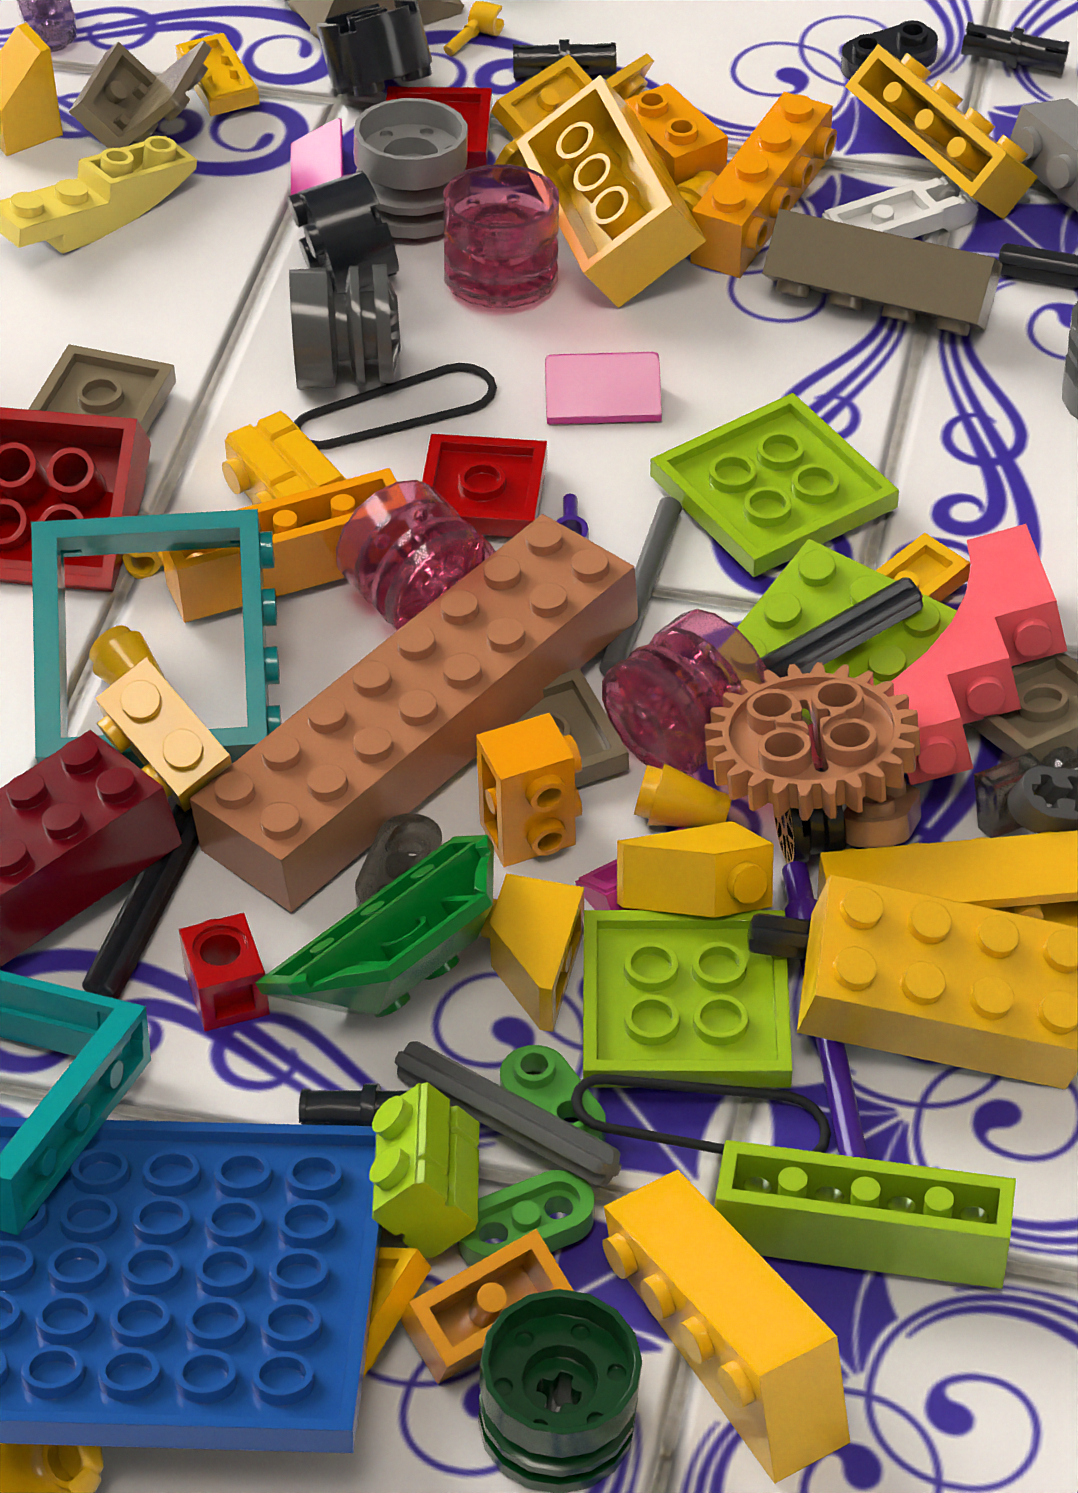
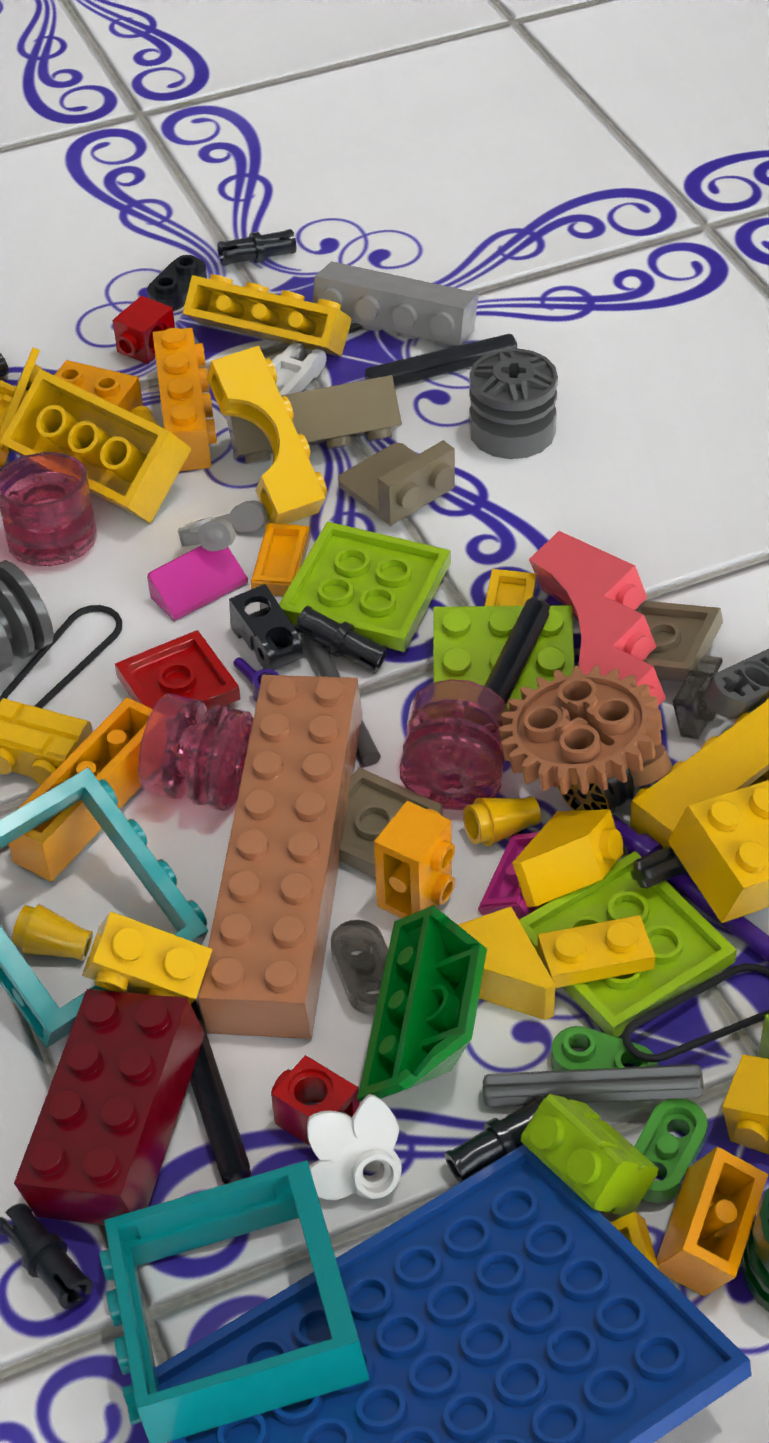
camera: 35 degrees left, 0 degrees up
(211, 1021) = (350, 1143): none -> white plate
(620, 478) = (267, 630): none -> black leg
(633, 984) = (596, 951): none -> yellow plate
(645, 344) = (219, 532): none -> light grey piece
(688, 527) = (341, 639): none -> black pin
(713, 405) = (280, 556): none -> light orange tile
(781, 329) = (248, 389): none -> yellow arch
(795, 72) = (136, 326): none -> red brick
(922, 387) = (400, 480): none -> dark tan bracket

